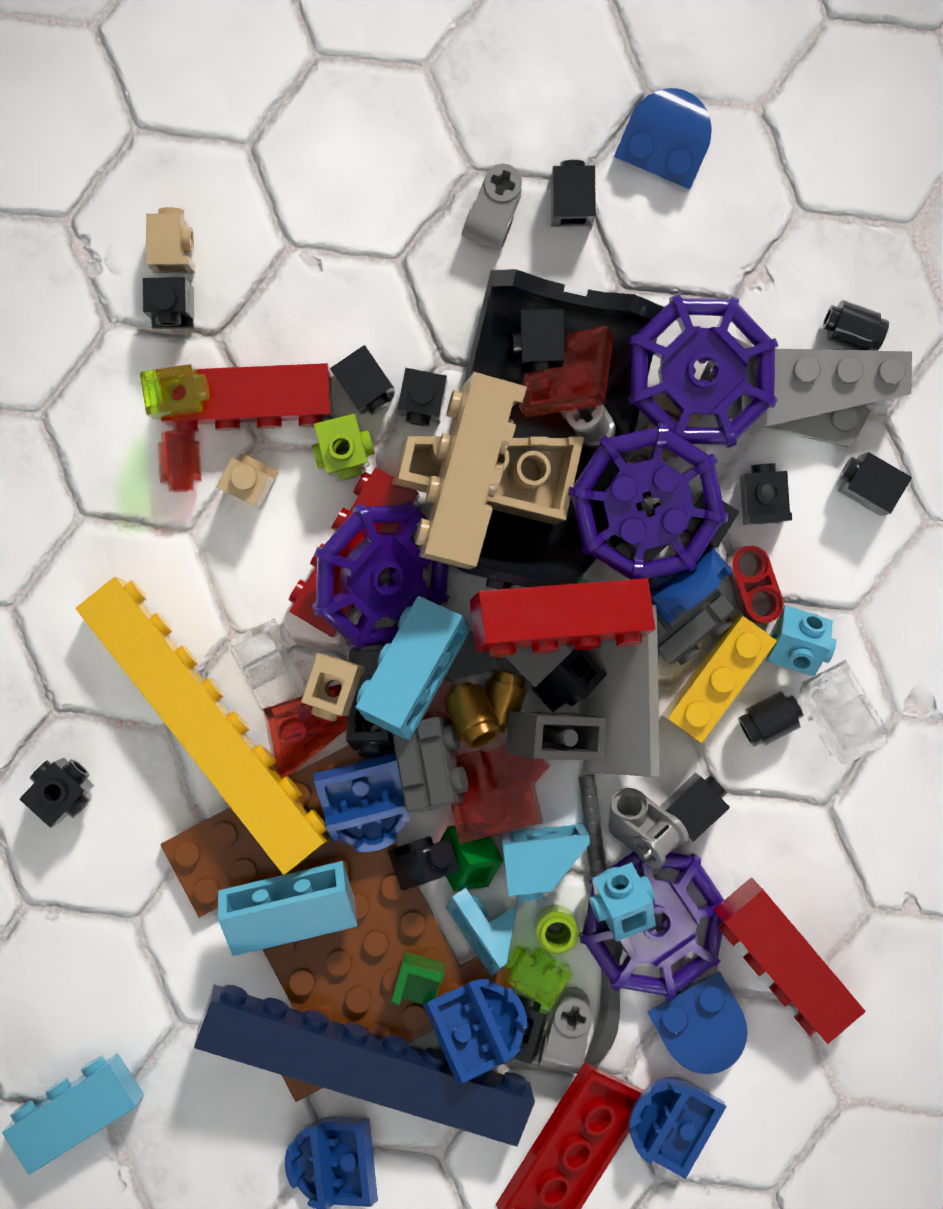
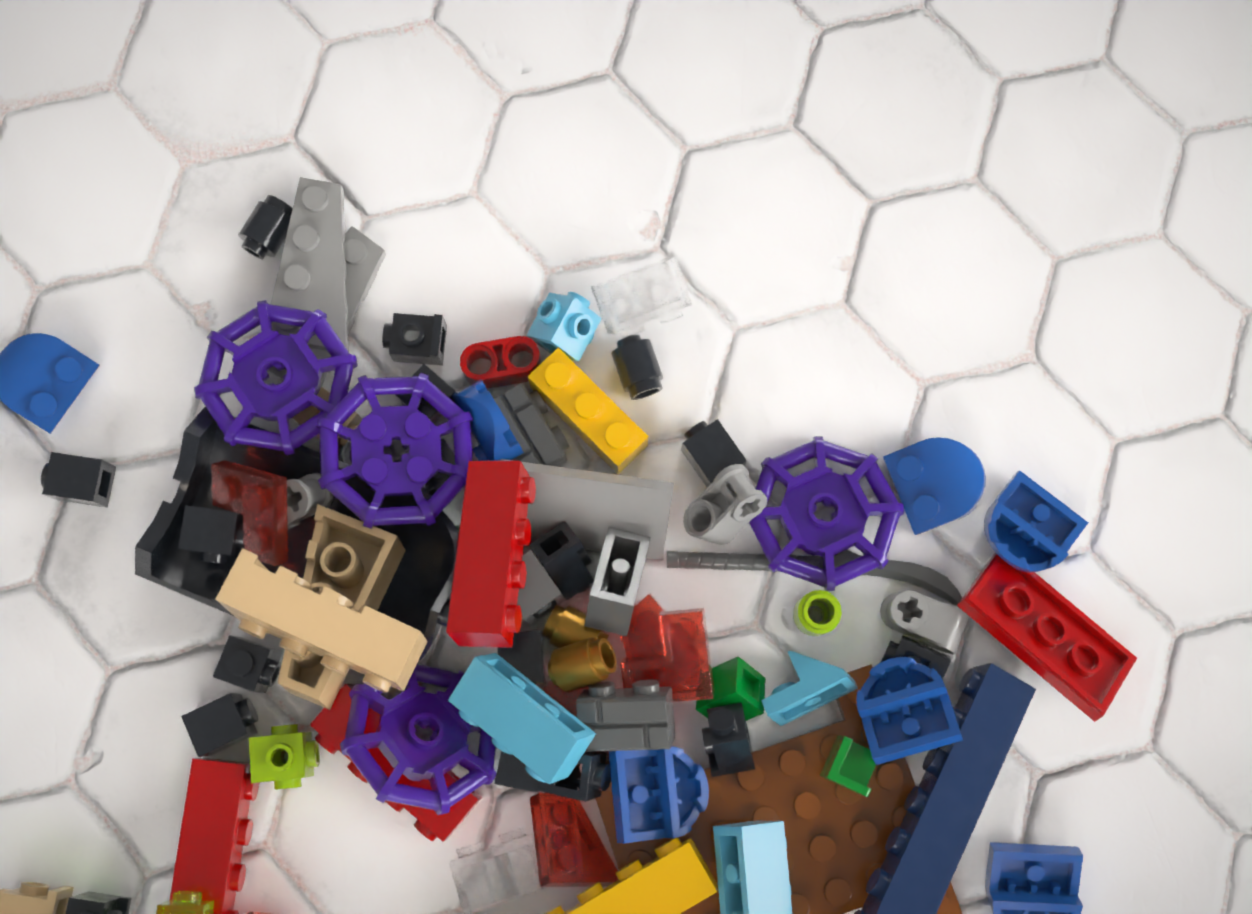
camera: 90 degrees left, 10 degrees down
(247, 480) = (299, 865): tan brick -> none
(324, 671) = (510, 808): tan brick -> none
(491, 213) = (77, 563): light grey piece -> none
(537, 974) = (861, 640): clear neon green brick -> none
(541, 858) = (741, 618): medium azure slope -> none
(623, 901) = (795, 538): medium azure brick -> none
(789, 960) = (878, 386): red brick -> none
(873, 483) = (422, 234): black brick -> none

